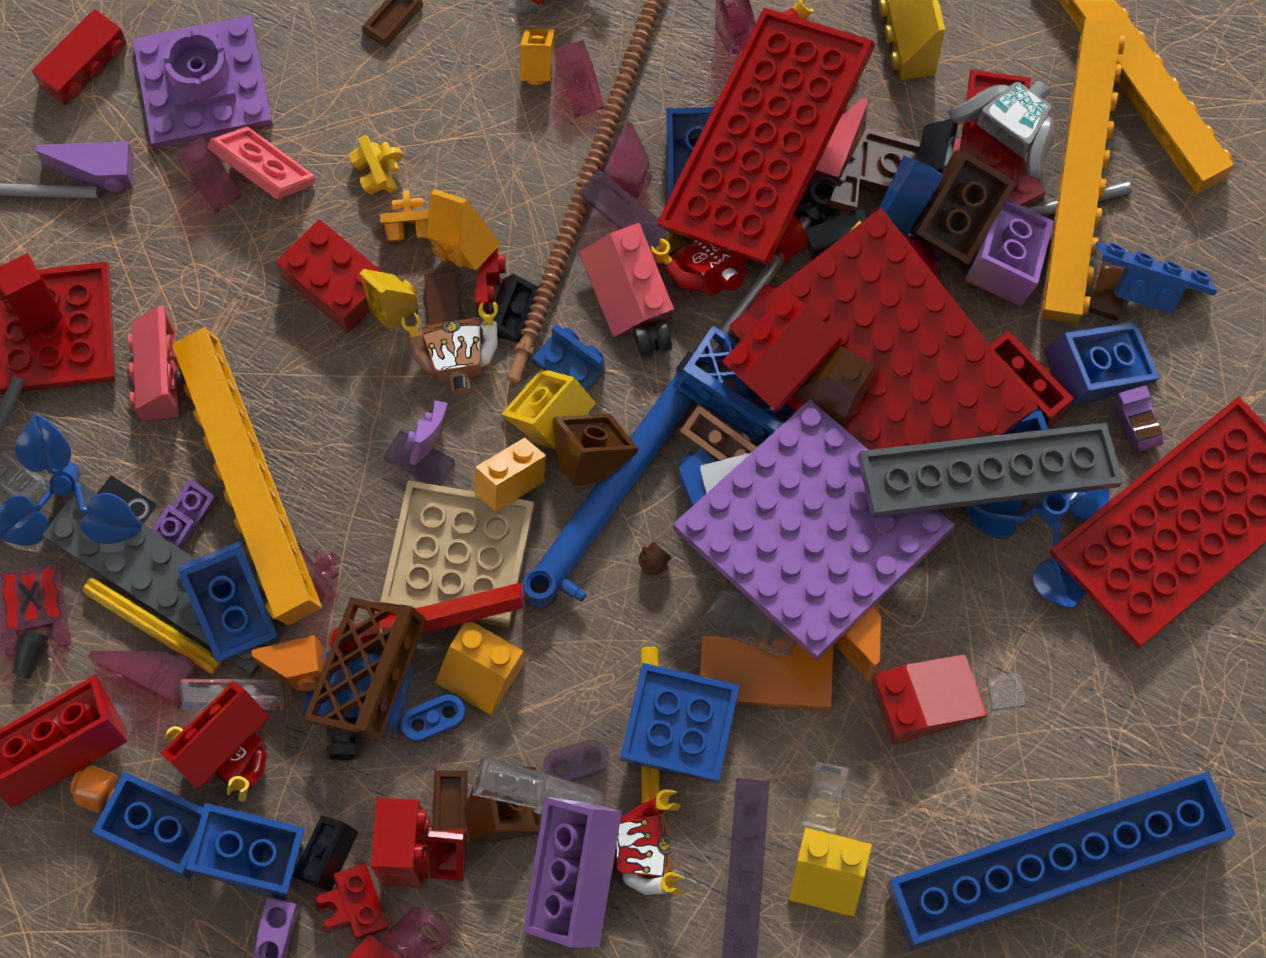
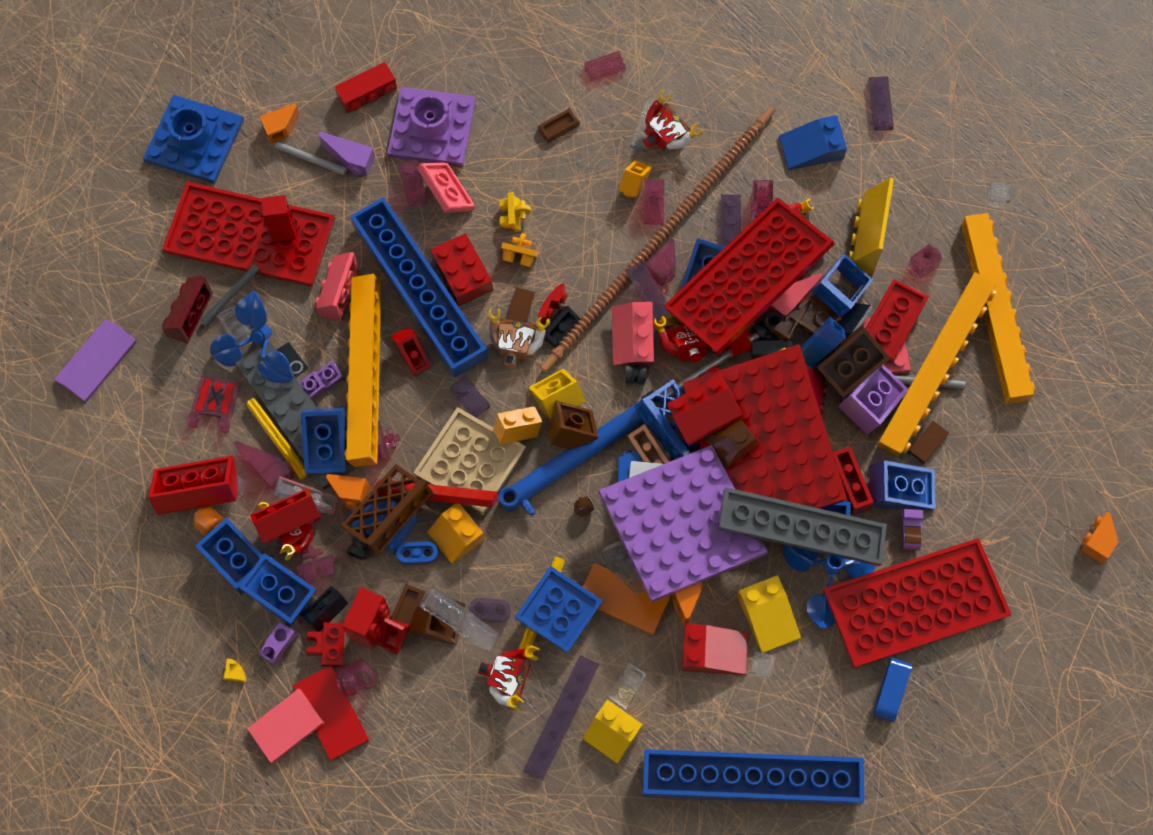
camera: 20 degrees right, 0 degrees up
(29, 651) = (202, 428): pearl dark grey cone -> none
(279, 323) = (419, 287): none -> blue brick
(300, 782) = (307, 568): none -> clear pink hips
(304, 422) = (411, 350): none -> red slope
(388, 297) = (488, 293): yellow slope -> none
(426, 433) = (478, 383): medium lavender slope -> none
(458, 231) = (544, 269): light orange slope -> none
(568, 356) = (582, 369): blue bracket -> none
(572, 872) = (460, 674): medium lavender slope -> none
(699, 66) = (730, 218): none -> clear purple plate
(894, 123) = (832, 296): none -> blue window
(986, 615) = (769, 614): none -> yellow slope
(1002, 40) = (922, 267): none -> clear pink brick
(1015, 118) = (907, 317): light grey torso -> none
(1151, 281) = (954, 448): blue bracket -> none
(1205, 658) = (892, 689): none -> blue beam

